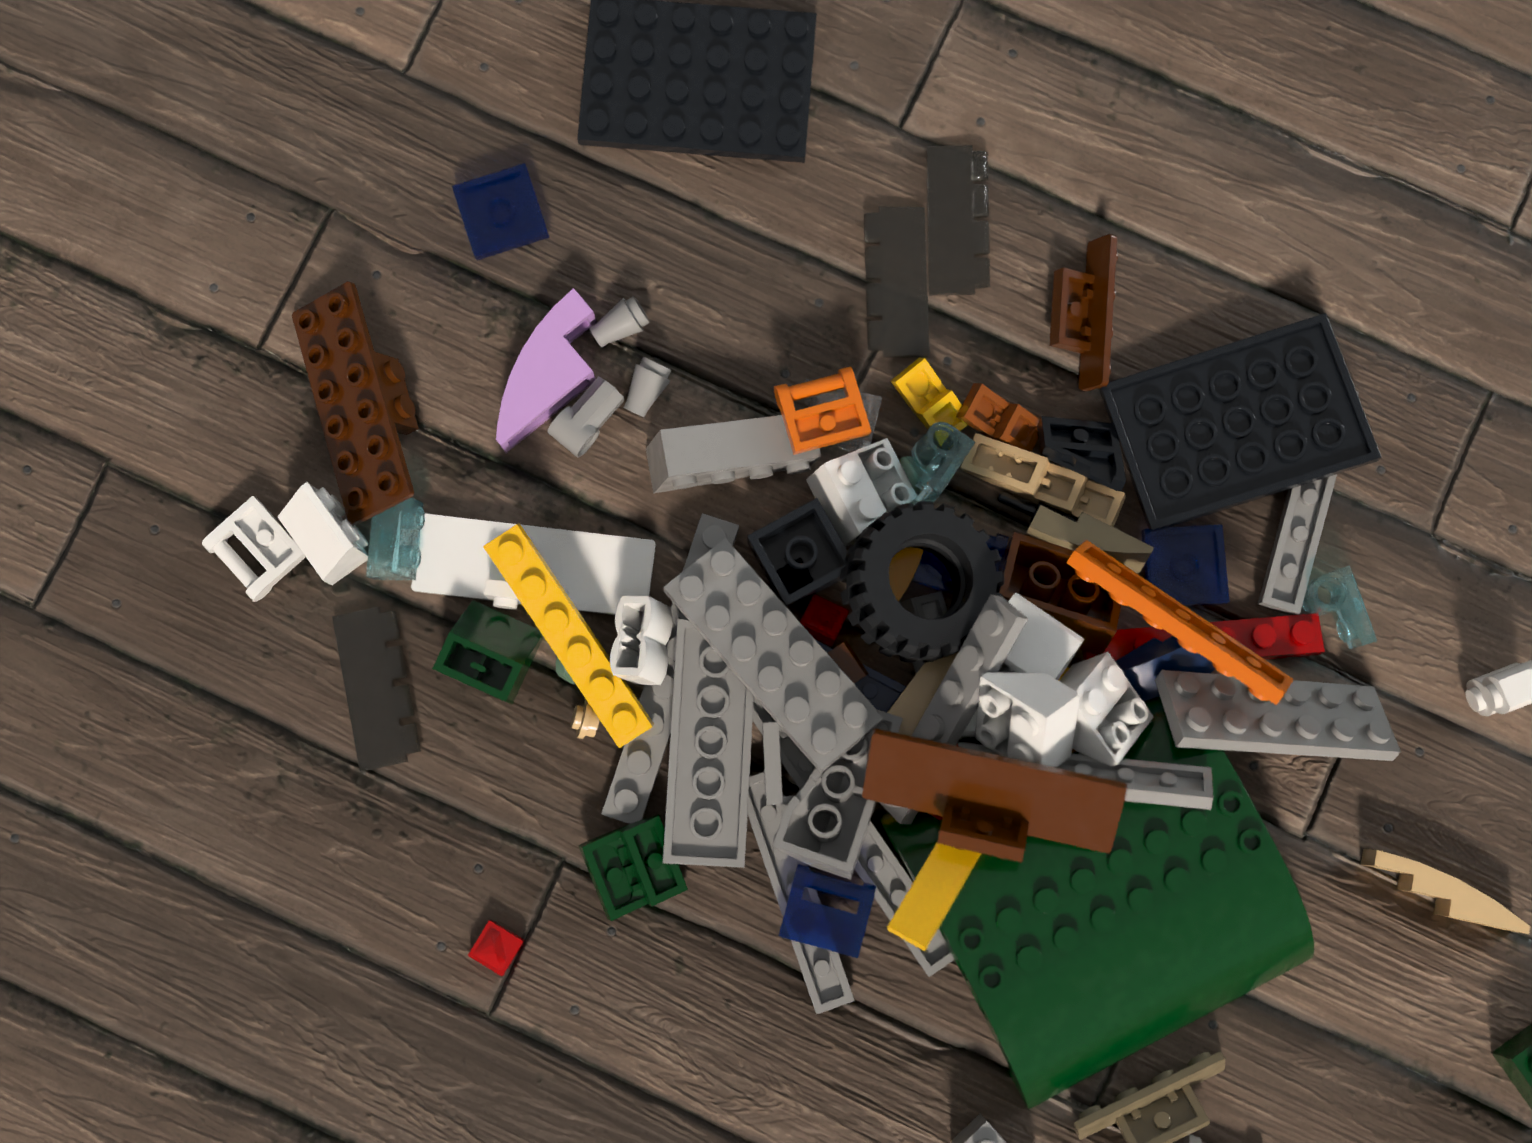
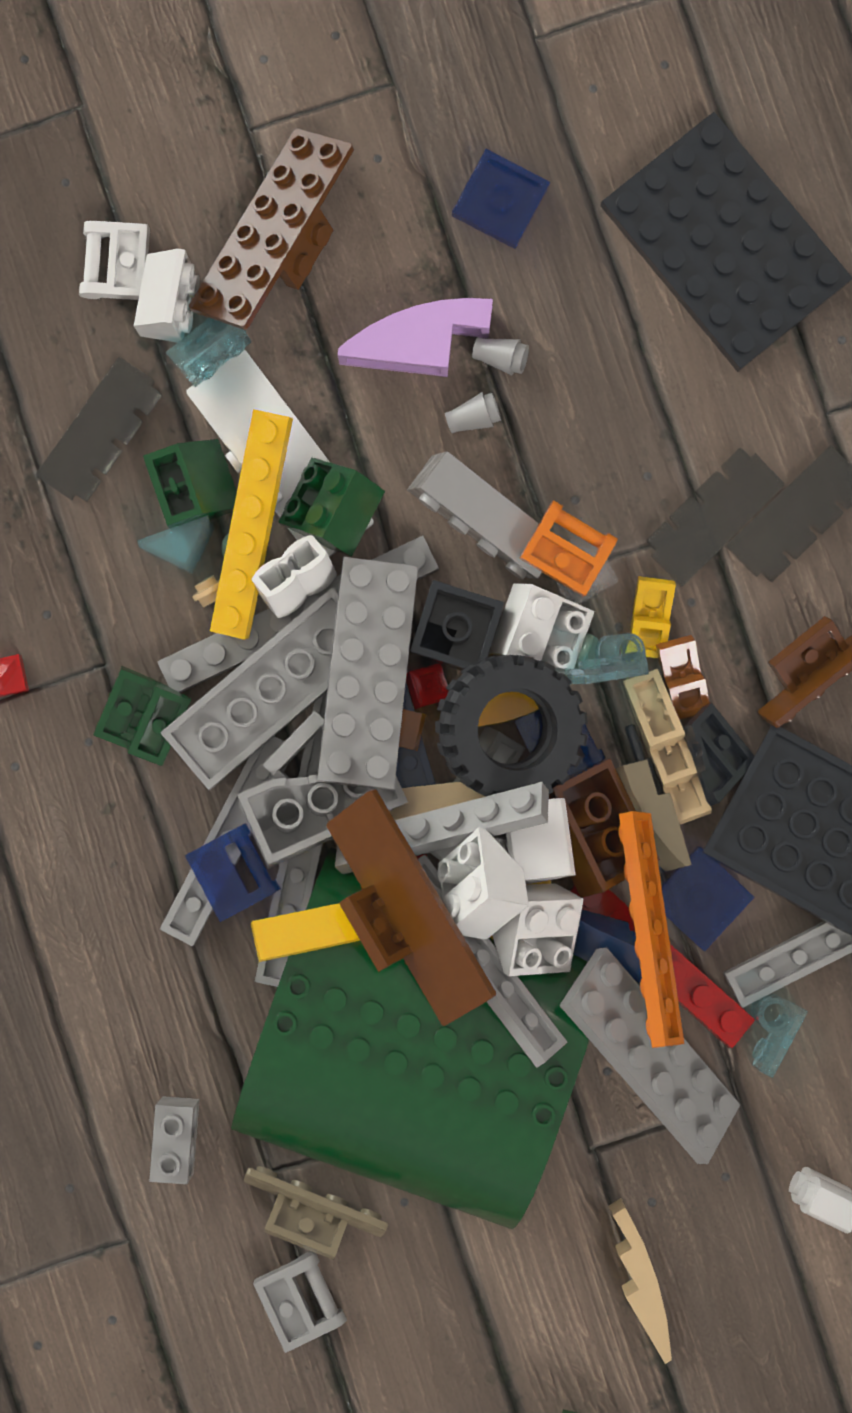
camera: 50 degrees right, 5 degrees up
(528, 708) = (180, 545): none -> clear light blue slope
(579, 425) = (403, 395): light grey piece -> none
(612, 559) = (332, 505): none -> dark green slope

